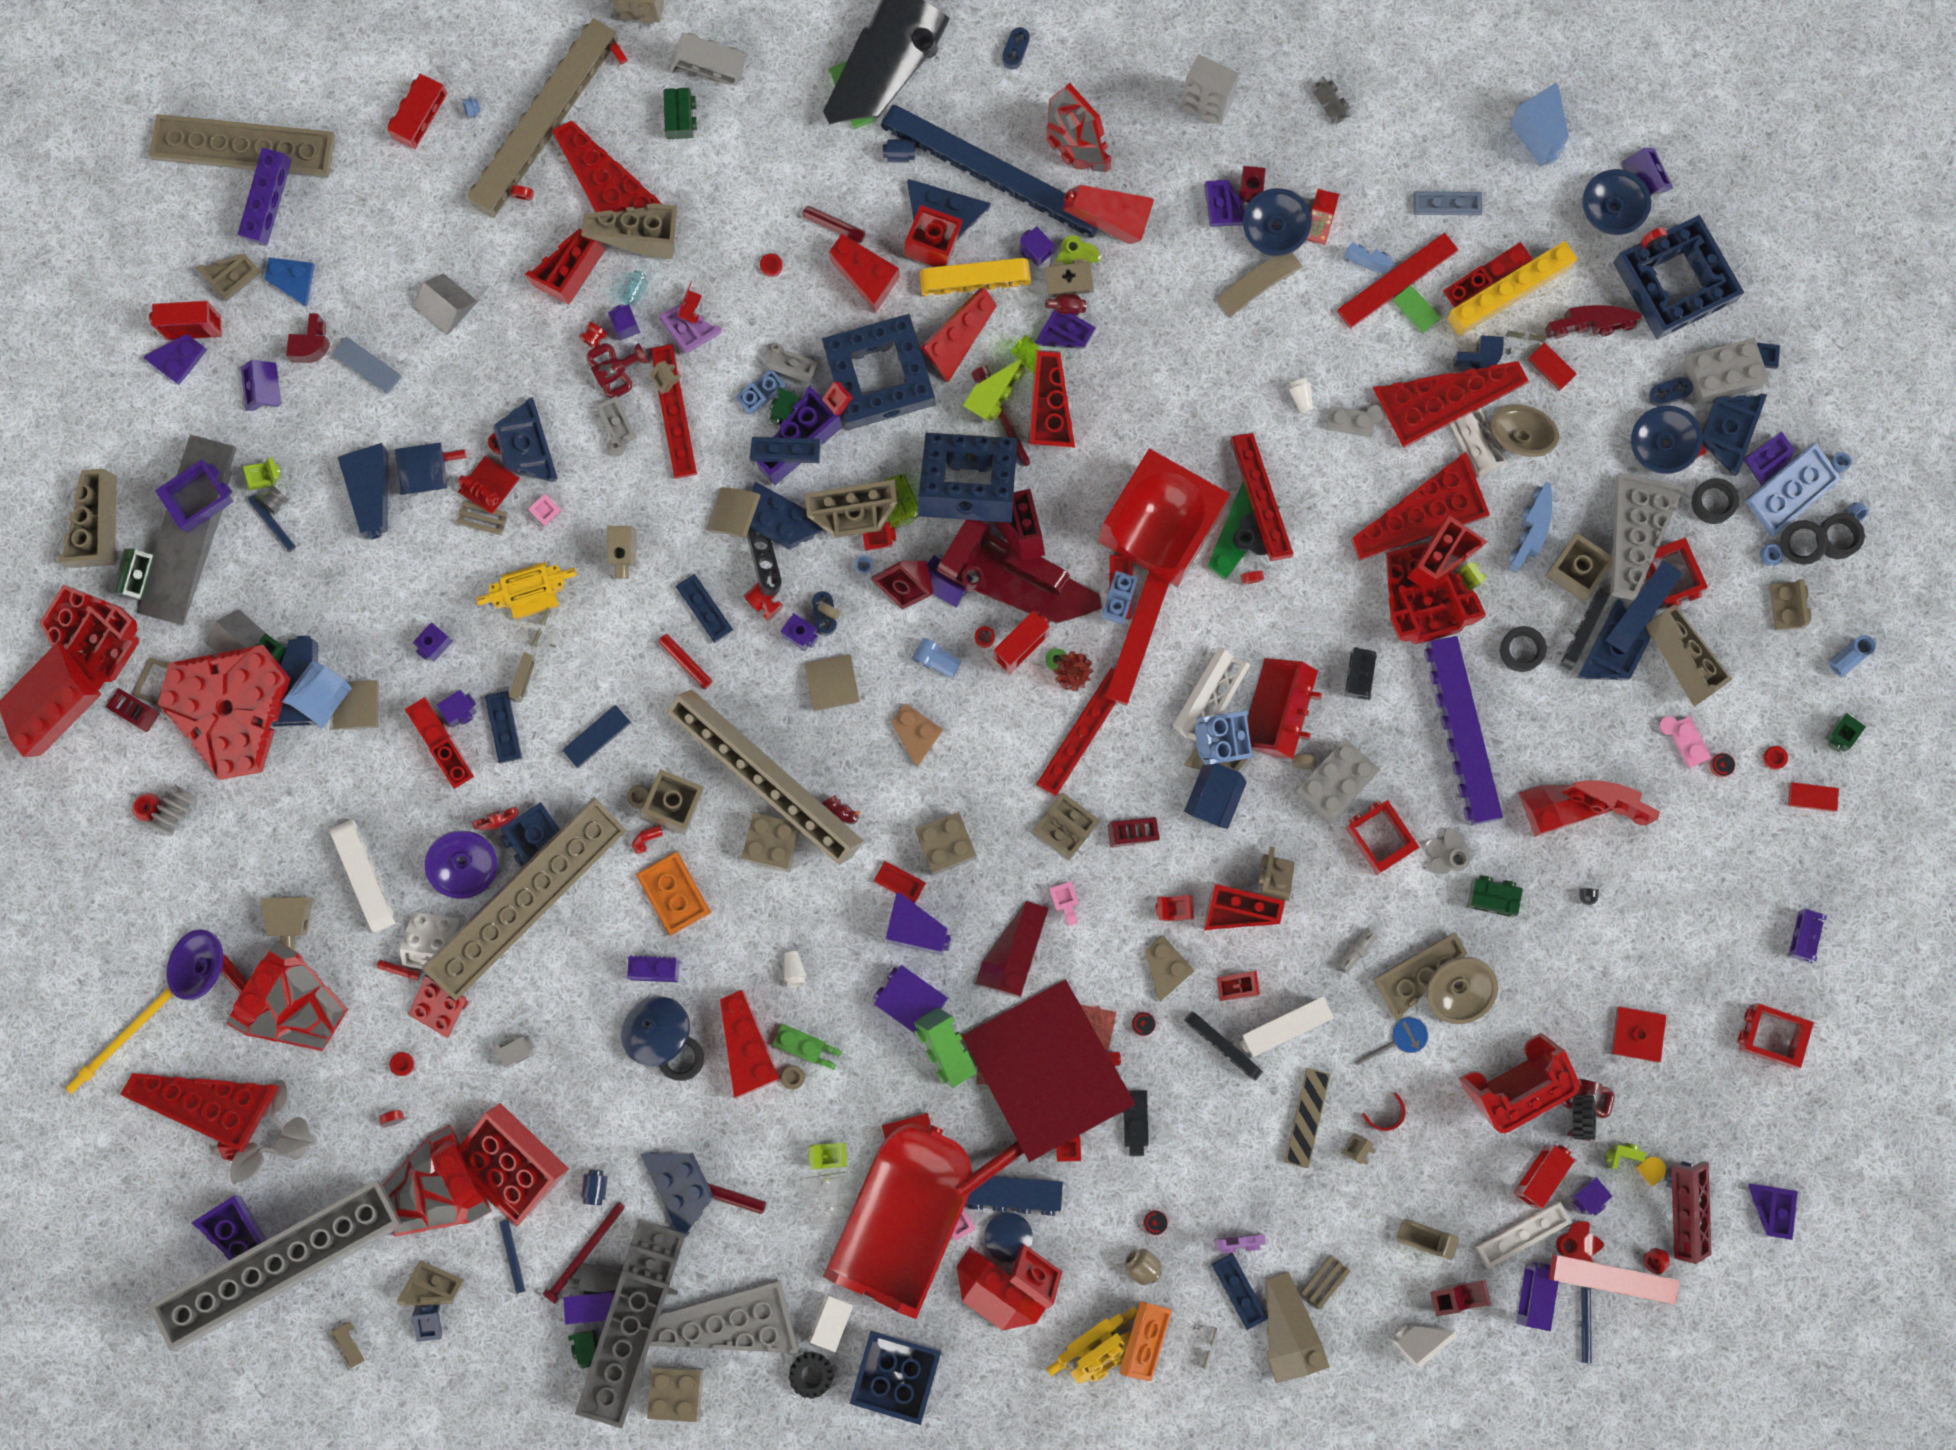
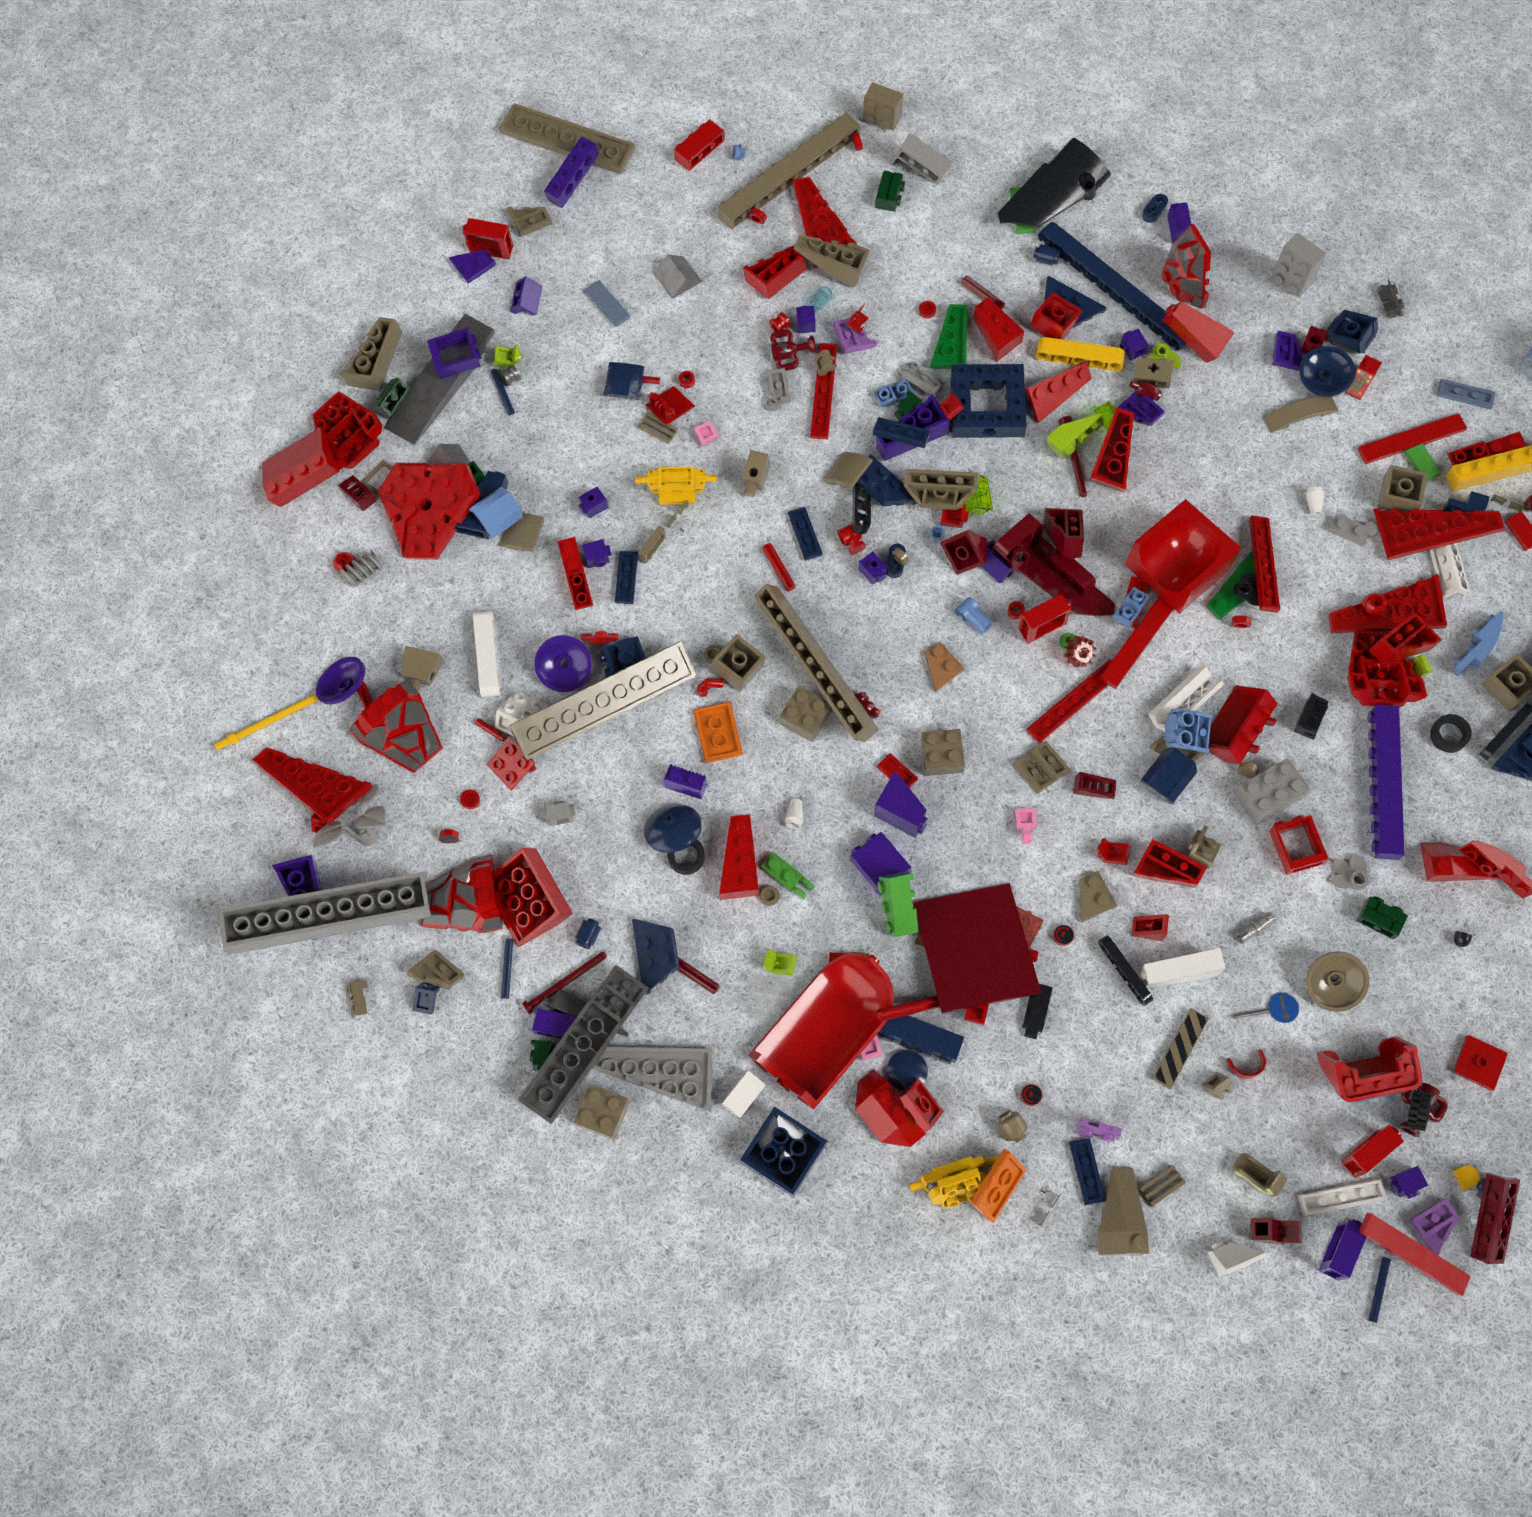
camera: 20 degrees right, 10 degrees down
(291, 277) = (572, 232): blue wing -> none
(308, 347) = (570, 279): dark red brick -> none
(367, 486) = (581, 381): dark blue slope -> none
(524, 443) = (706, 383): dark blue wing -> none
(596, 736) = (694, 602): dark blue tile -> none
(797, 1382) = (724, 1140): black tyre -> none
(813, 300) = (952, 339): none -> green wing
(832, 682) = (887, 611): dark tan slope -> none
(967, 500) = (1050, 499): dark blue brick -> none
(1011, 956) = (970, 854): dark red wedge -> none
(1051, 64) = (1178, 219): none -> dark purple brick
(1294, 156) = (1353, 330): none -> dark blue slope
(1377, 261) = (1398, 420): medium blue slope -> none
(1398, 519) = (1370, 607): none -> red plate
(1400, 355) = (1402, 489): none -> dark tan brick
(1409, 980) = (1292, 963): dark tan wing -> none
(1524, 430) = (1490, 569): dark tan dish -> none
(1583, 1243) = (1390, 1214): red plate -> none
(1629, 1151) = (1448, 1154): lime bracket -> none
(1629, 1235) = (1435, 1224): none -> medium lavender wing
(1656, 1260) = (1454, 1253): red tile -> none

